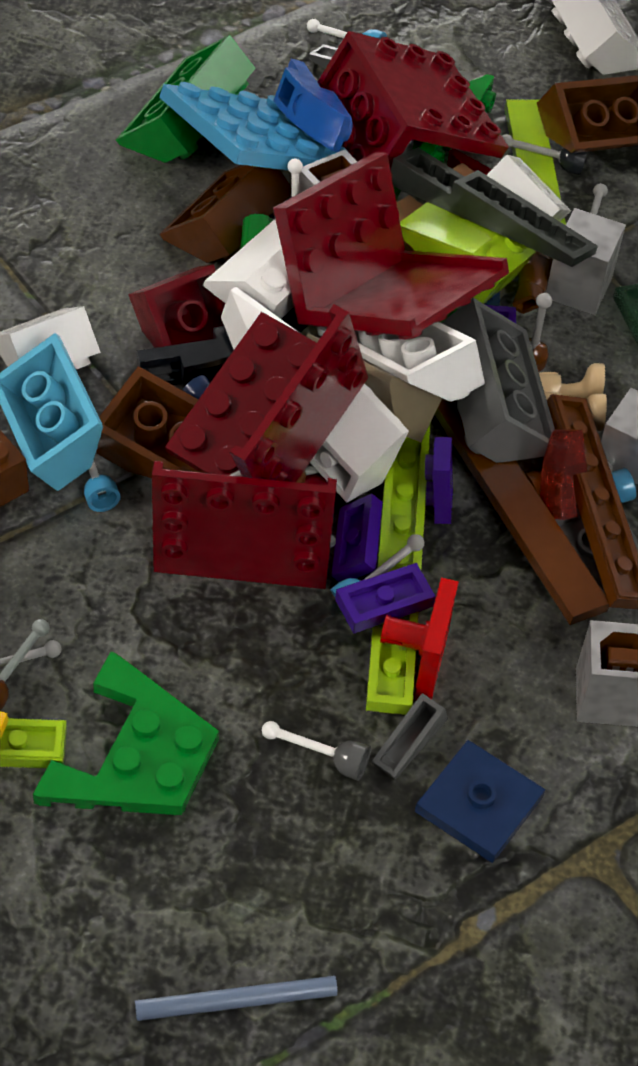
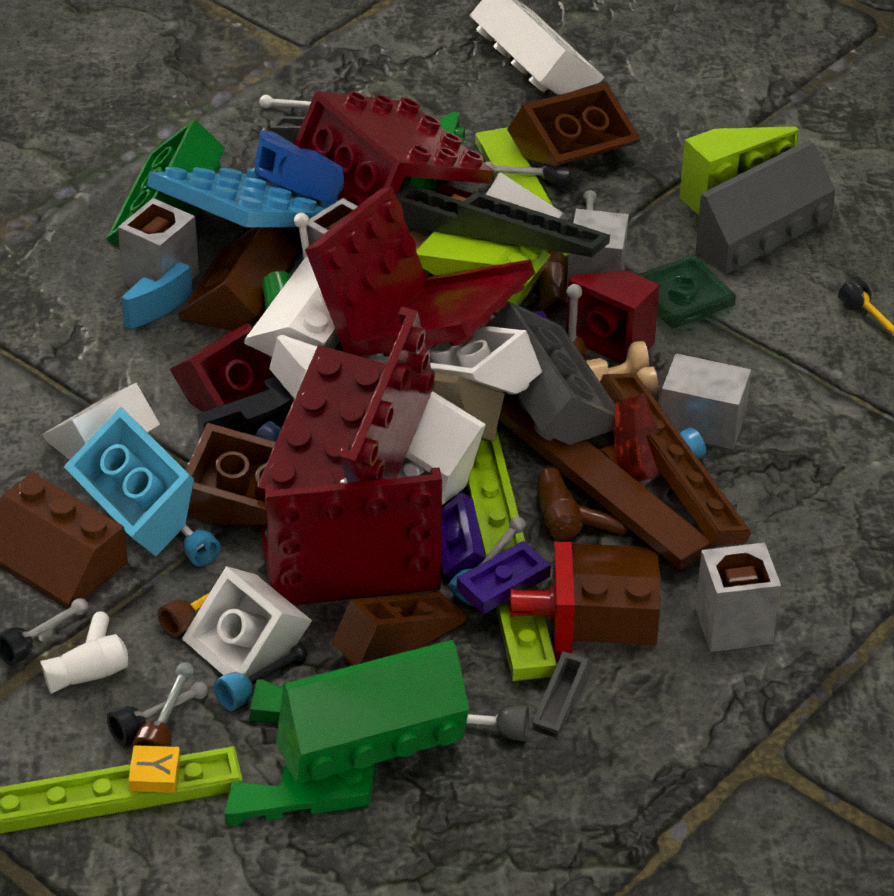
camera: 10 degrees left, 10 degrees down
(57, 562) = (178, 615): none -> reddish brown hinge
(87, 656) = (236, 688): none -> dark azure hinge
(116, 591) = (245, 624): none -> white slope
(136, 216) = (154, 299): none -> dark azure slope
(155, 165) = (156, 241): none -> flat silver piece
(203, 726) = (372, 712): none -> green slope
(259, 625) = (394, 625): none -> reddish brown slope
(440, 470) = (521, 458): dark purple plate -> none
(469, 534) = (564, 515): none -> reddish brown piece
(480, 801) = (642, 733): dark blue plate -> none
(496, 635) = (616, 594): none -> reddish brown slope
(585, 326) = (615, 312): none -> dark red slope

